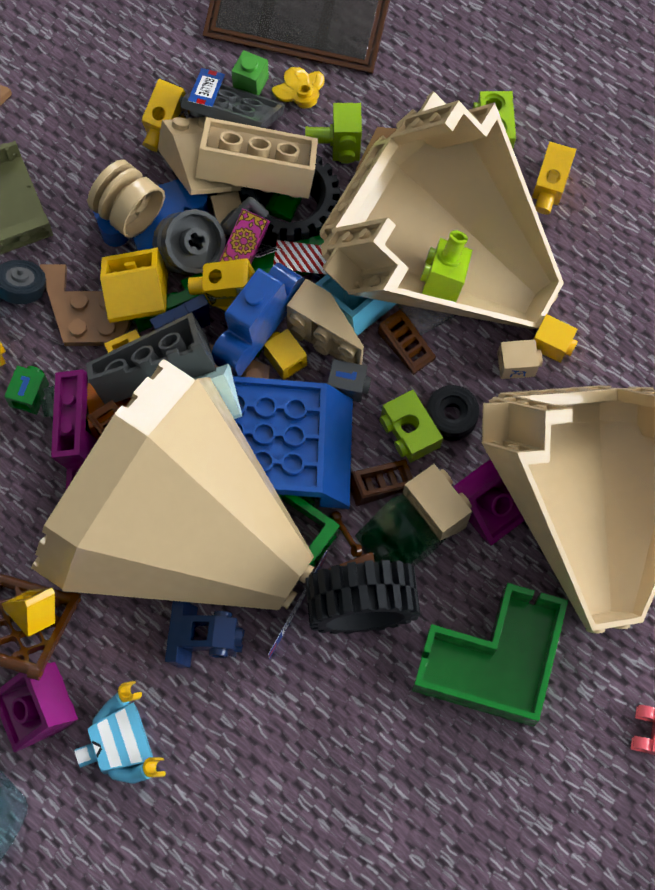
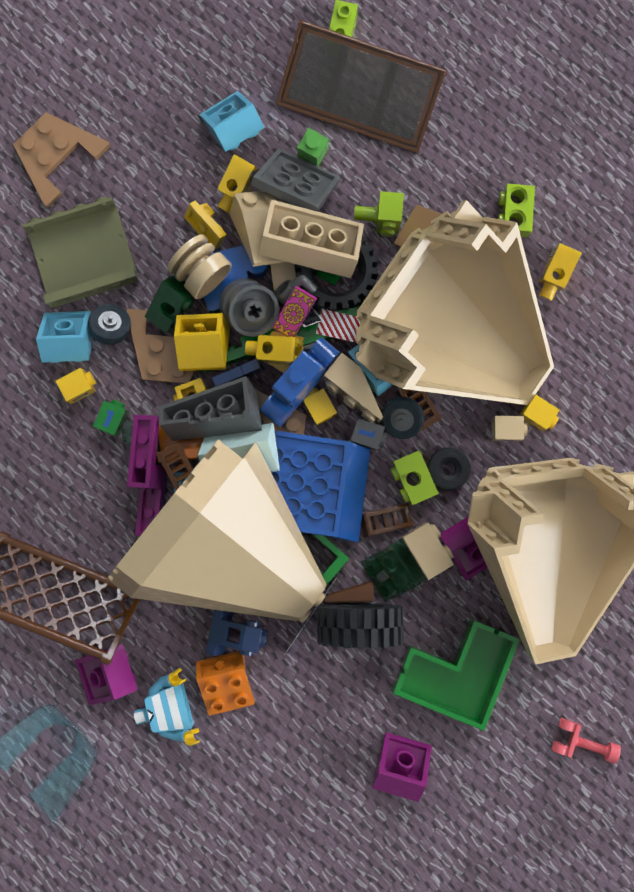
camera: 10 degrees right, 15 degrees up
(32, 610) = (105, 605): yellow slope -> none
(81, 258) = (169, 302): none -> dark green brick
(118, 151) = (201, 220): none -> yellow hinge
(154, 55) = (232, 121): none -> medium azure slope
(193, 704) = (224, 683): none -> orange bracket
(206, 87) = (274, 162): sticker -> none
(300, 87) = (353, 158): yellow plate -> none
(356, 549) = (359, 578): reddish brown hinge -> none
(388, 357) = (402, 417): none -> black wheel
(438, 790) = (402, 767): none -> magenta slope
(447, 267) = (459, 354): lime brick -> none

